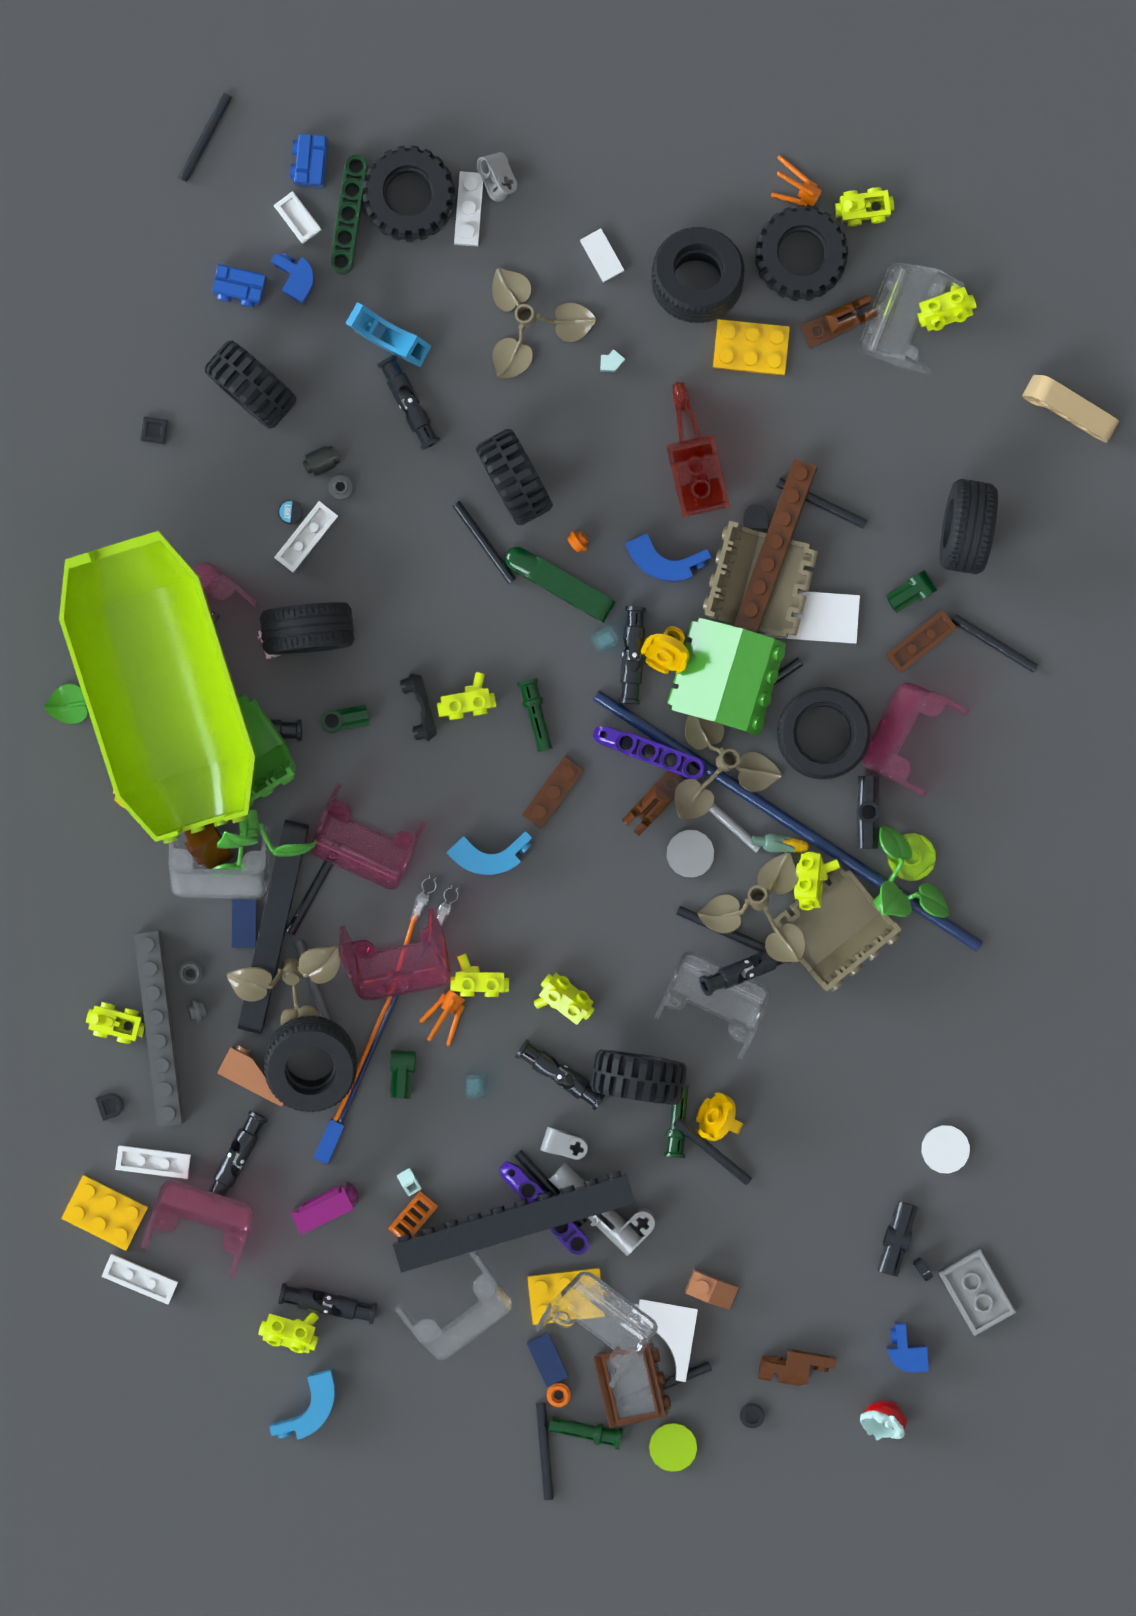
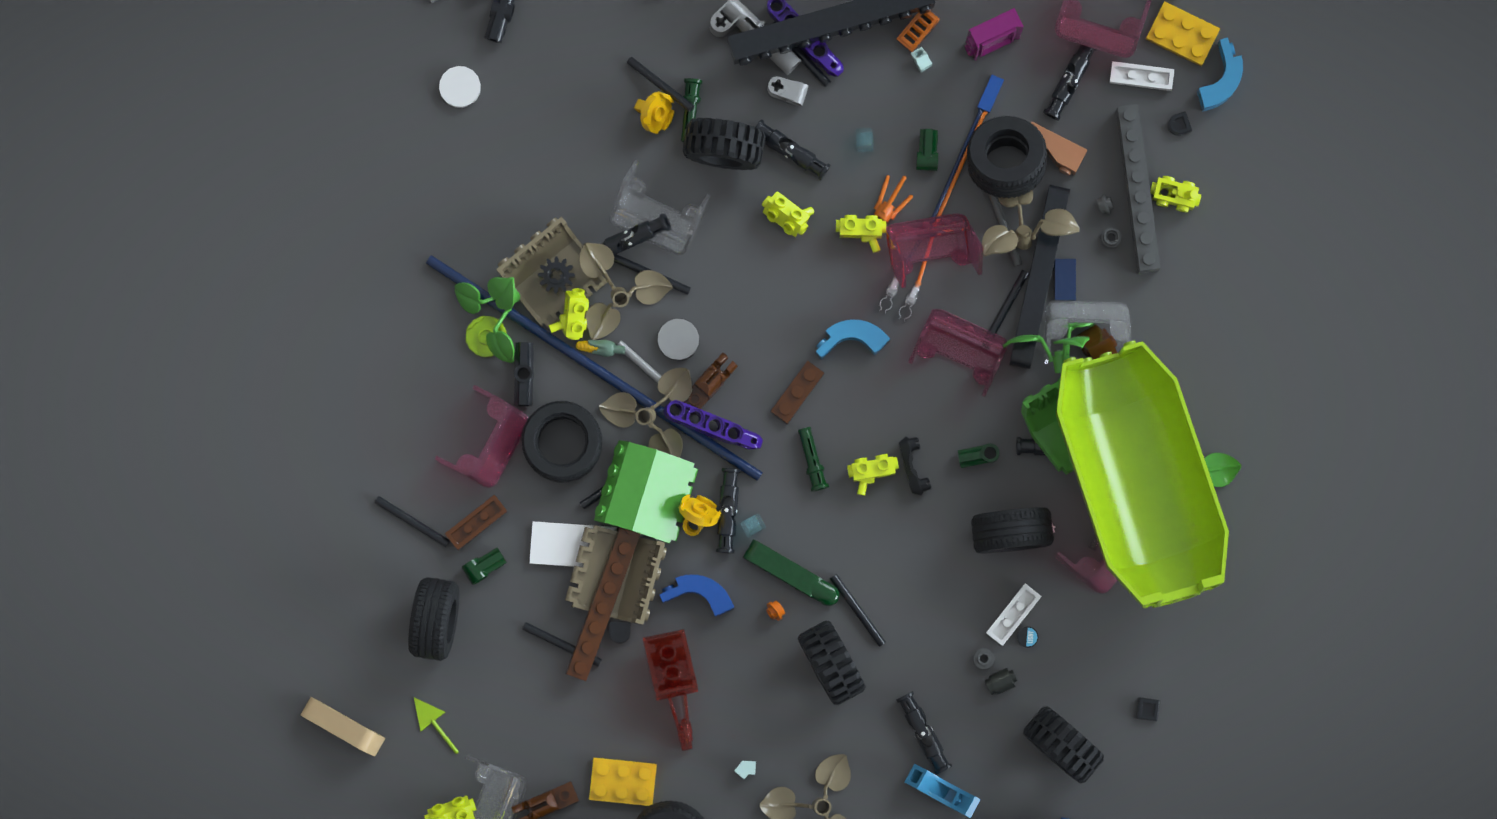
camera: 175 degrees left, 5 degrees down
(51, 1154) = (1219, 92): none -> dark azure arch
(834, 917) = (559, 268): none -> black gear
(972, 423) = (428, 714): none -> lime piece

